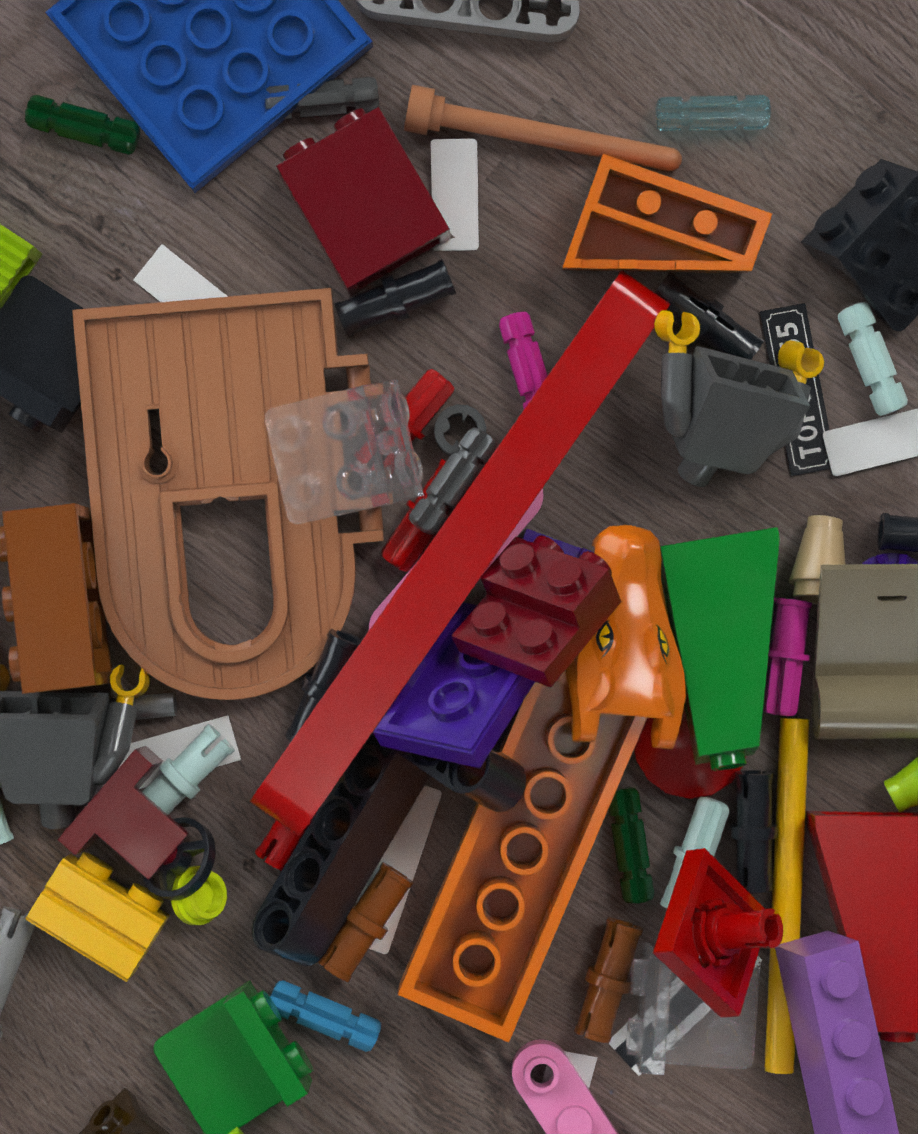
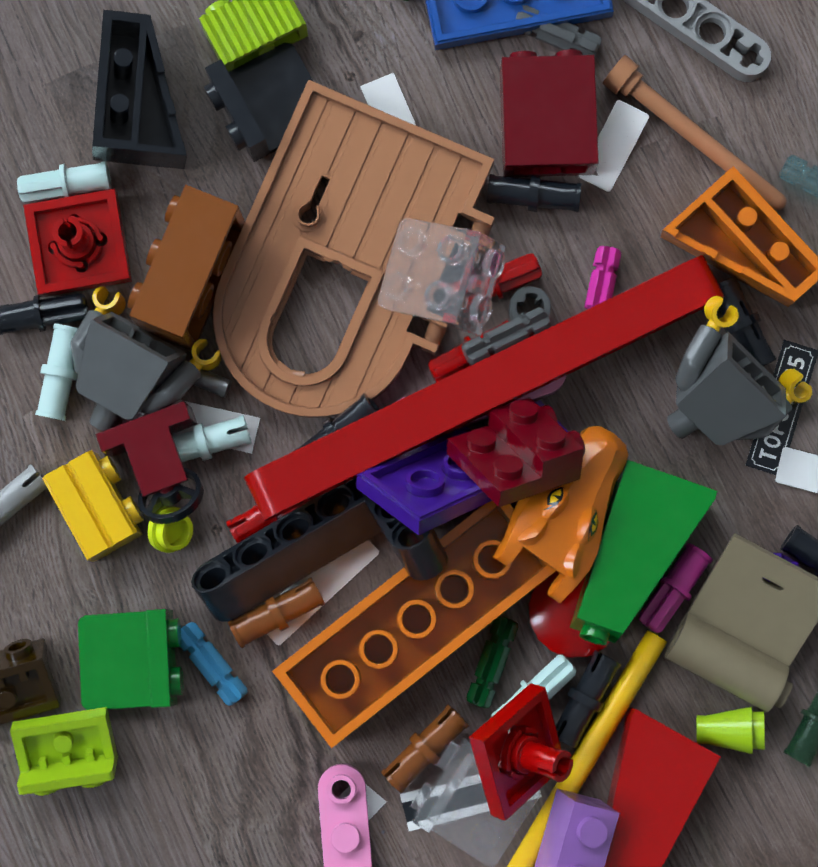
camera: 30 degrees right, 5 degrees down
(819, 546) = (742, 520): tan cone -> none

